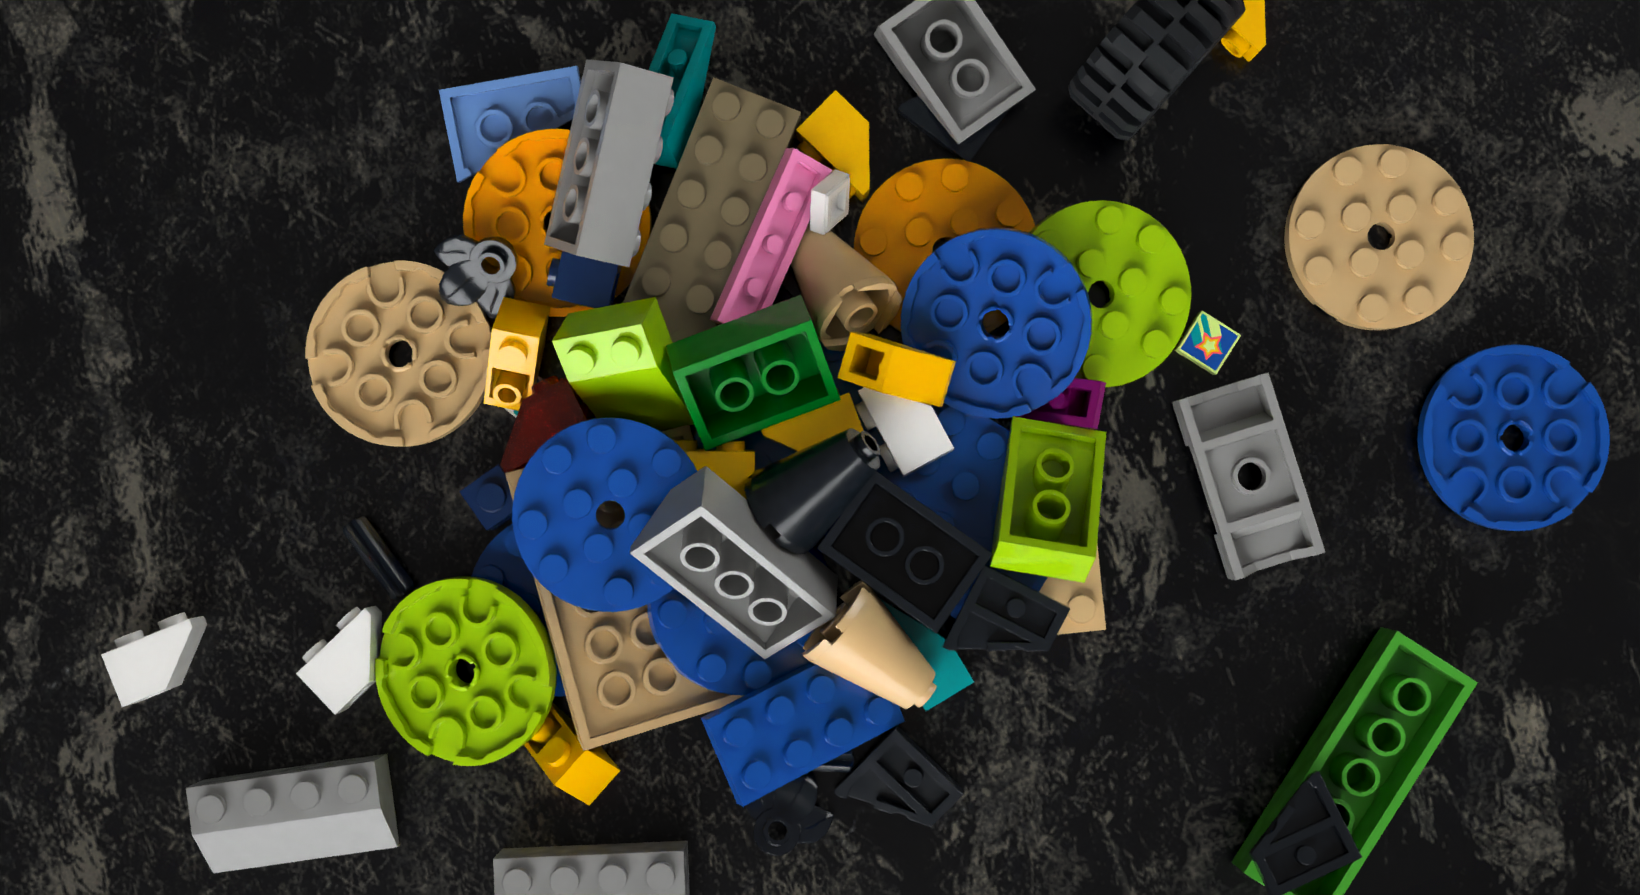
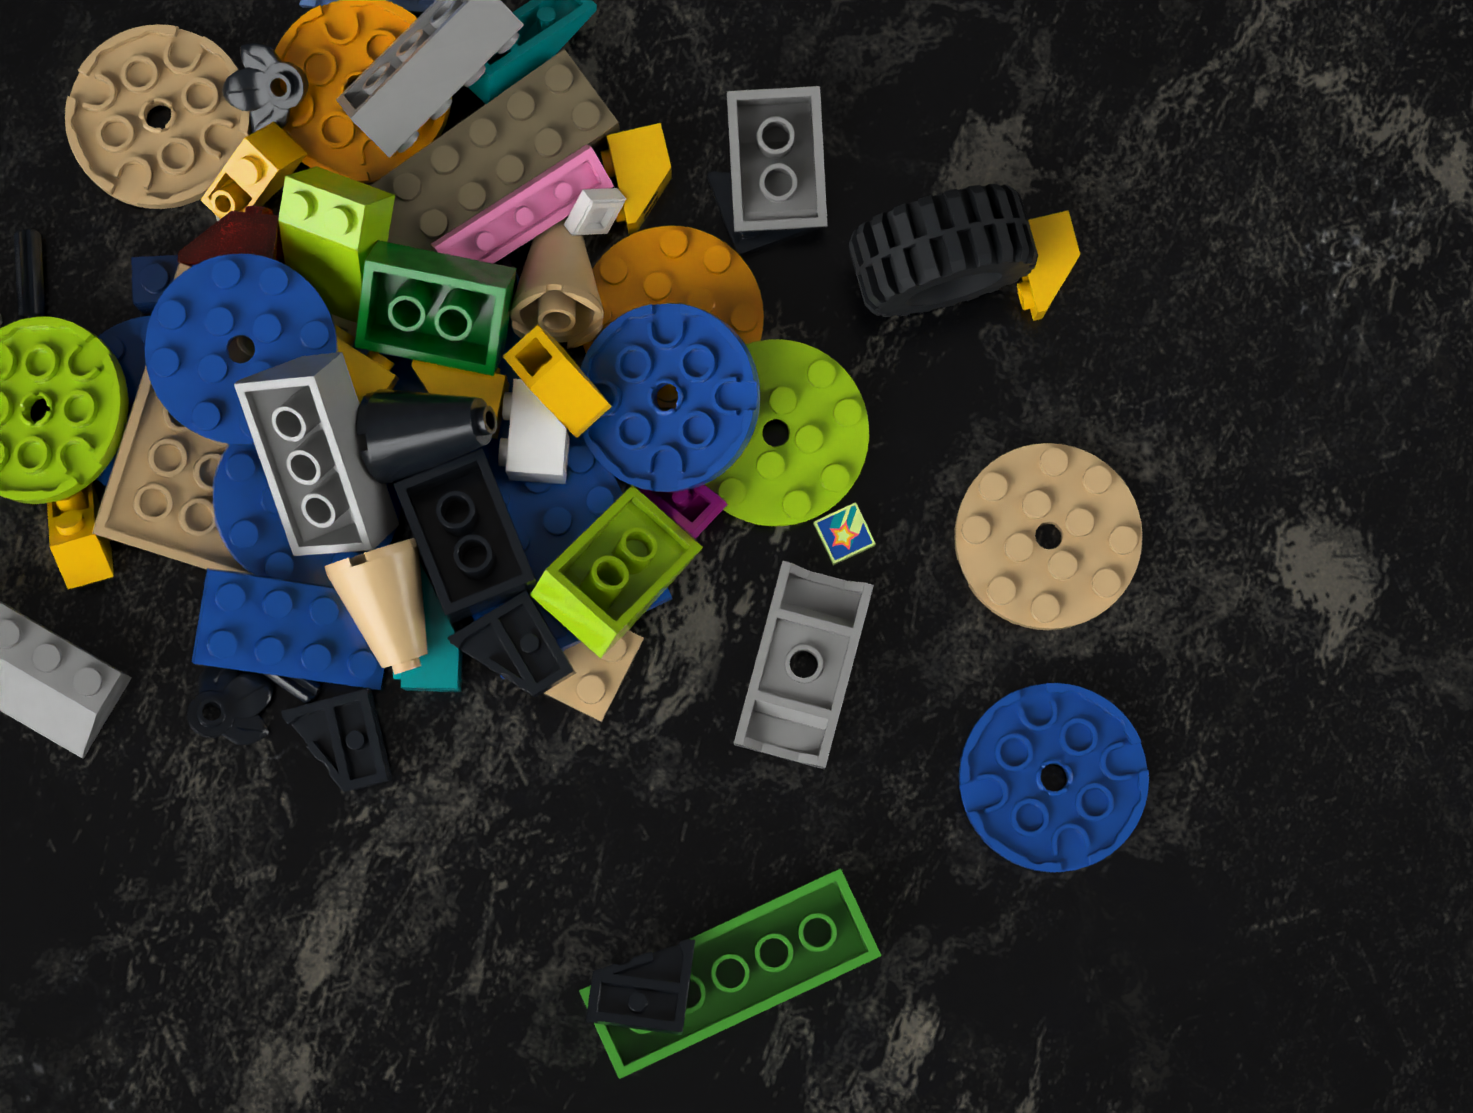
camera: 30 degrees right, 5 degrees down
(583, 280) = (348, 148): dark blue brick -> none

